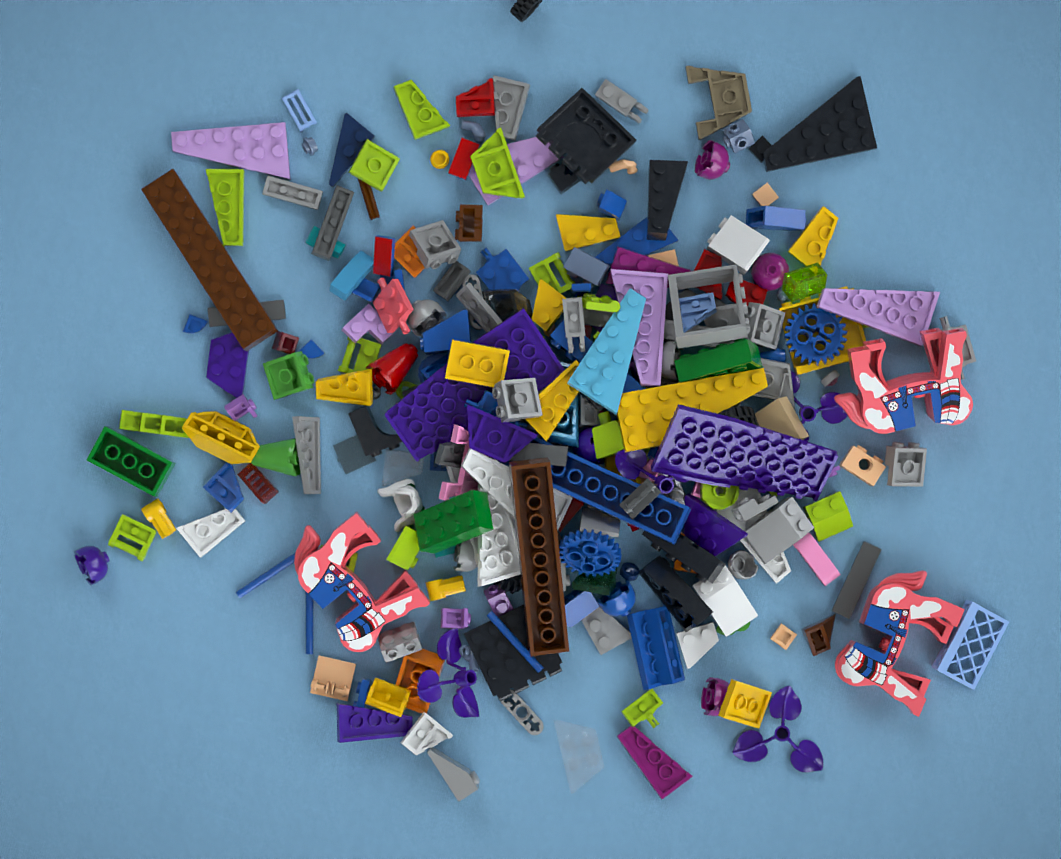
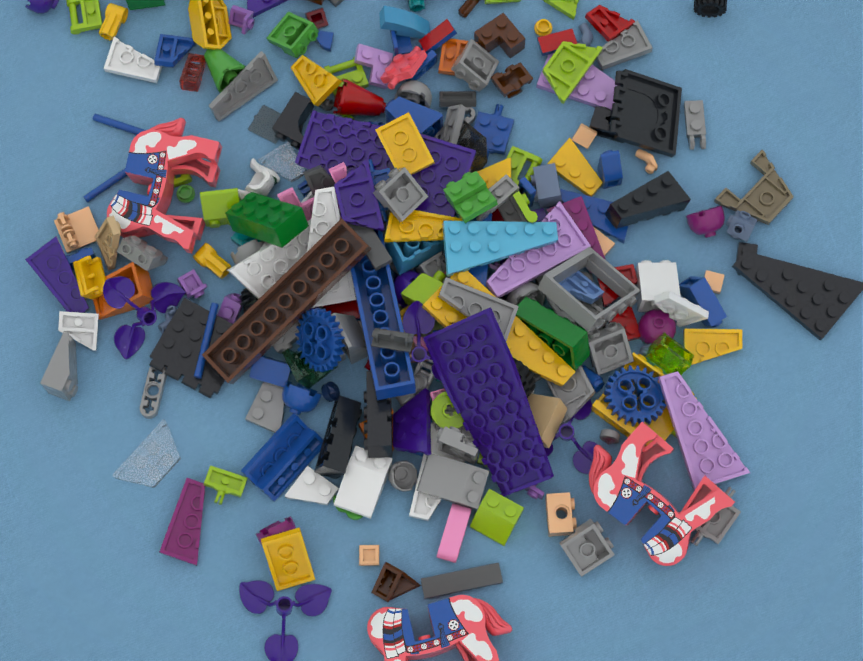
camera: 50 degrees right, 15 degrees down
(367, 567) = (185, 193): none -> bright green plate
(370, 661) = (108, 241): none -> tan wing
(420, 197) = (500, 33): none -> reddish brown brick
(561, 344) = (469, 196): none -> bright green plate
(564, 201) = (584, 135): none -> light nougat tile
(661, 407) = (472, 301): none -> light grey wing
(776, 244) = (680, 308): none -> white wing

